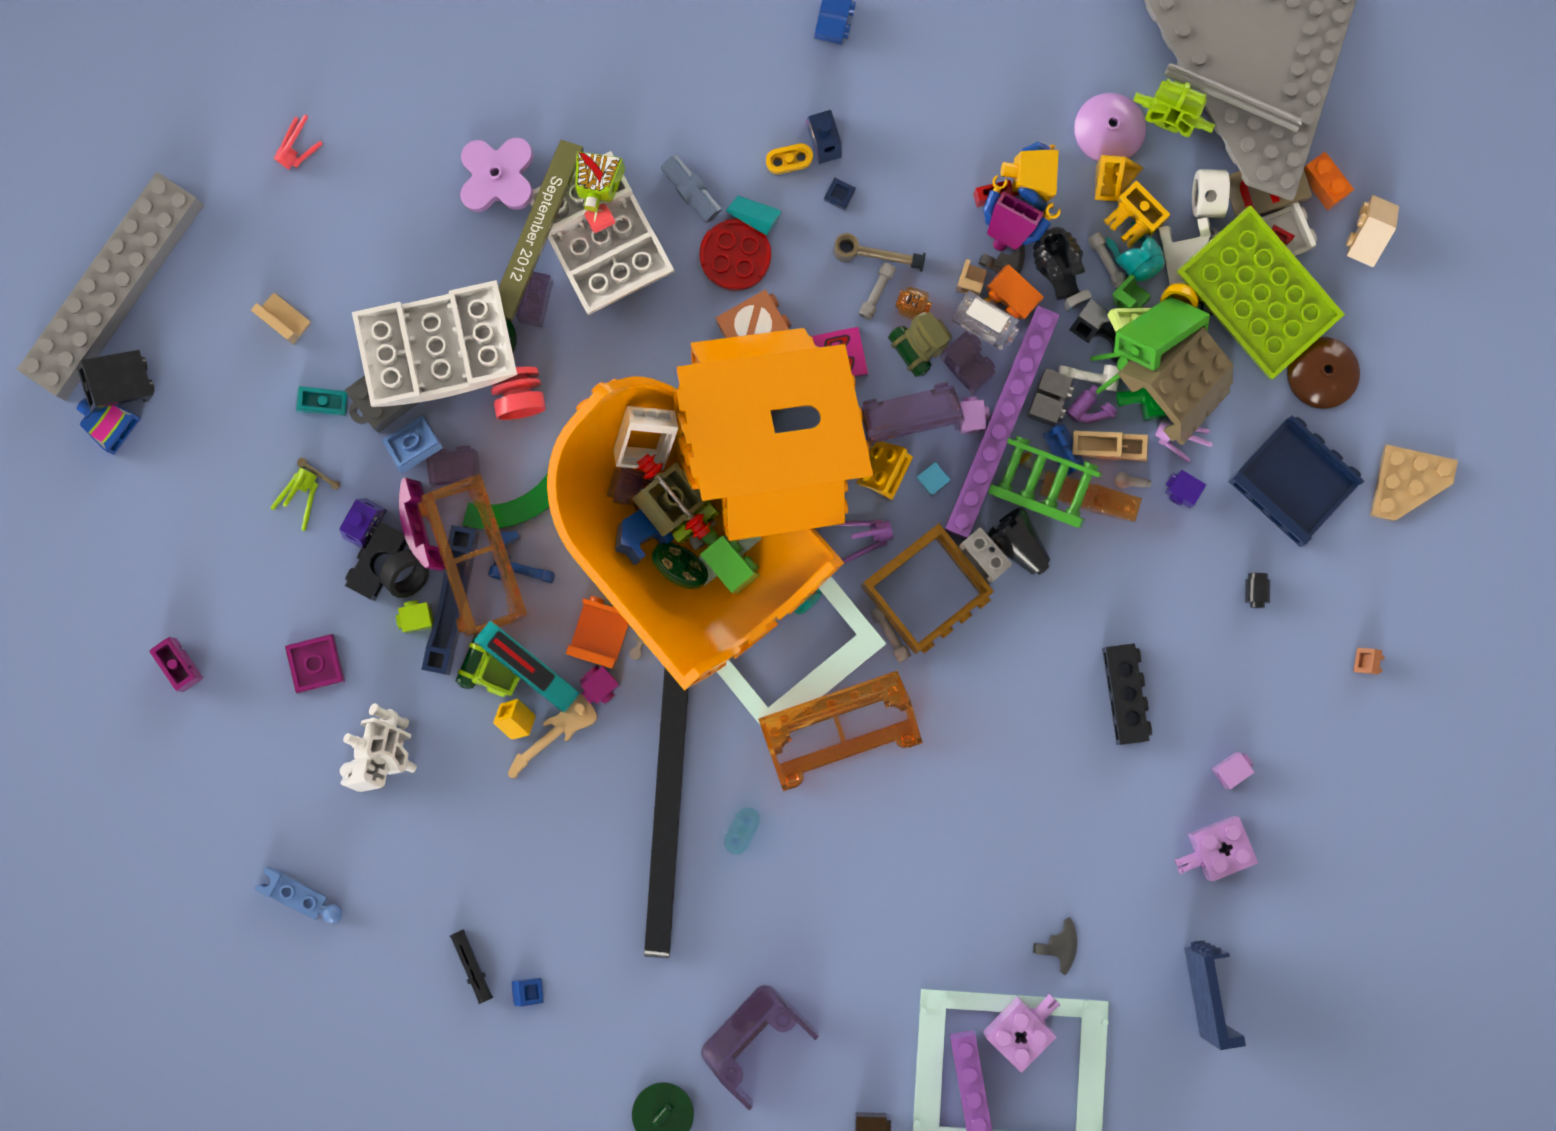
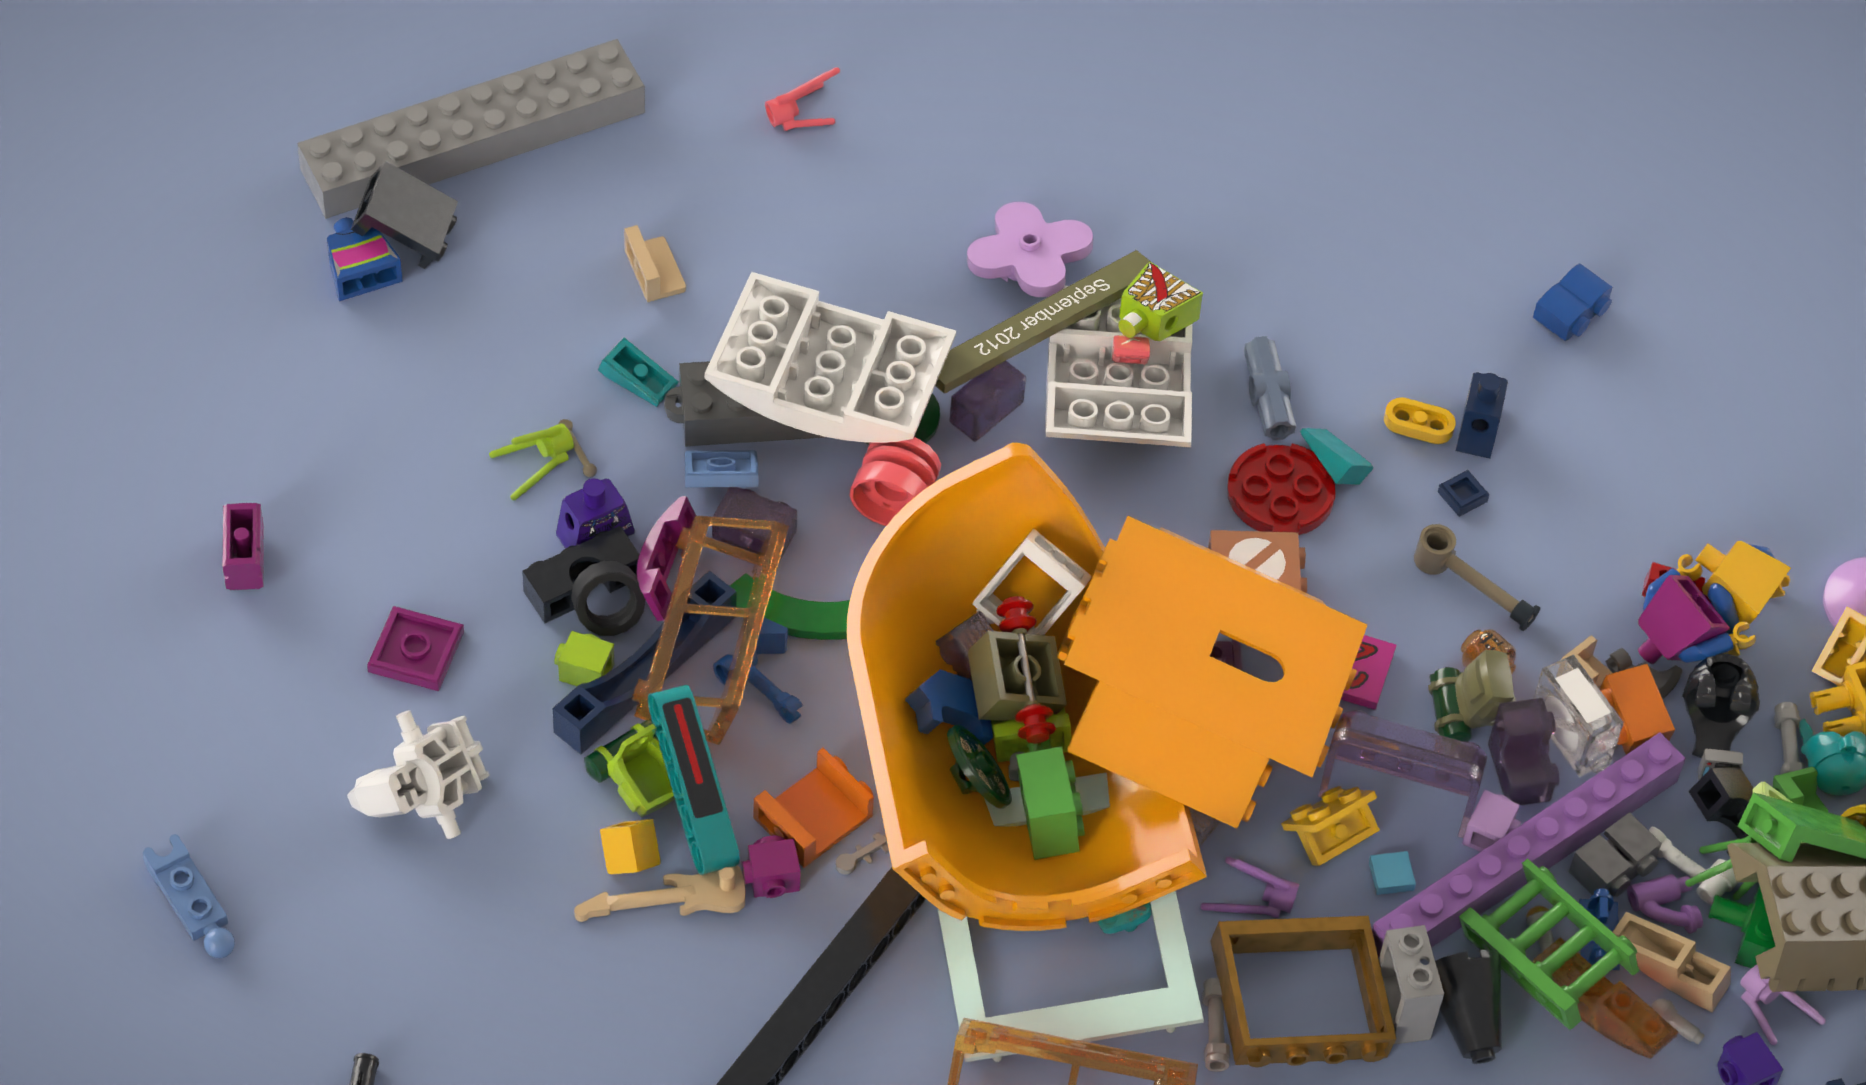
camera: 25 degrees right, 30 degrees down
(868, 308) = (1423, 633): light grey bar -> none

